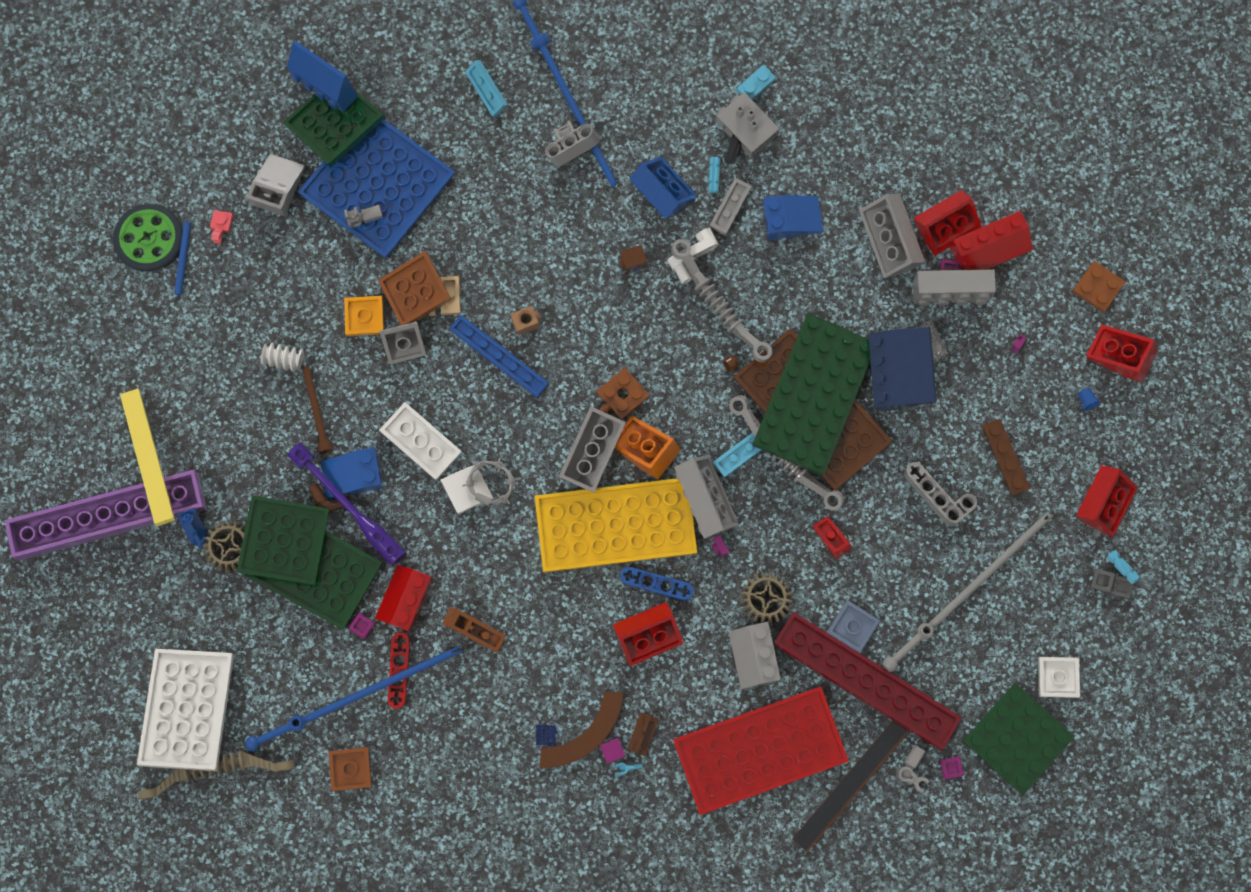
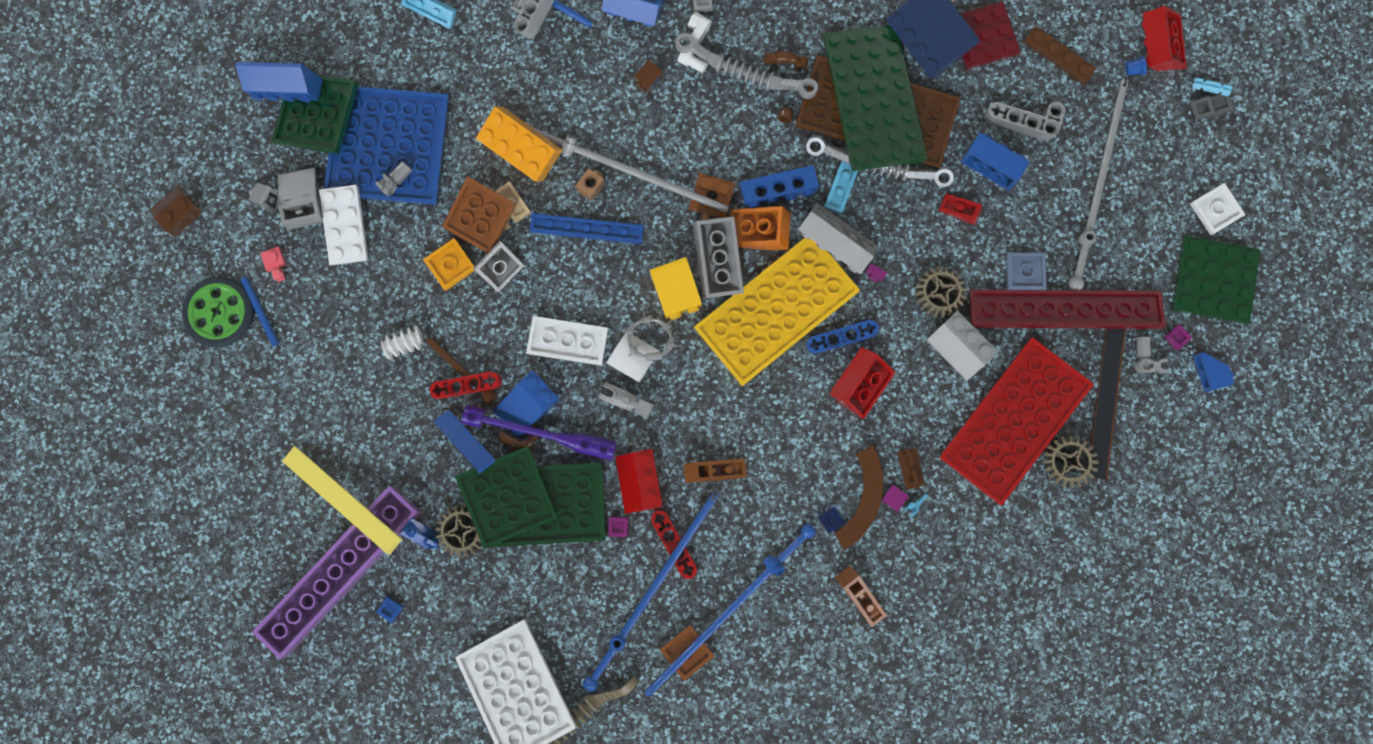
camera: 30 degrees left, 5 degrees up
(128, 574) = (389, 609): none -> blue tile
(168, 132) = (175, 211): none -> reddish brown slope
(247, 165) = (264, 197): none -> light grey slope
(279, 471) = (464, 441): none -> blue tile
(297, 228) = (343, 225): none -> white plate
(311, 424) = (465, 385): none -> red beam
(437, 523) = (626, 400): none -> light grey piece
(470, 742) = (774, 565): none -> blue bar
(486, 249) = (519, 144): none -> light orange brick
(528, 816) = (860, 596): none -> dark orange slope
(529, 277) = (570, 145): none -> light grey bar
(539, 453) = (676, 288): none -> yellow slope
(659, 406) = (805, 175): none -> blue brick
(757, 311) = (785, 57): none -> reddish brown piece
(792, 811) = (1079, 467): none -> dark tan gear
(884, 513) = (995, 161): none -> blue brick
(956, 402) = (996, 36): none -> dark red plate
(961, 818) = (1213, 372): none -> blue slope
(1066, 508) = (1136, 66): none -> blue piece

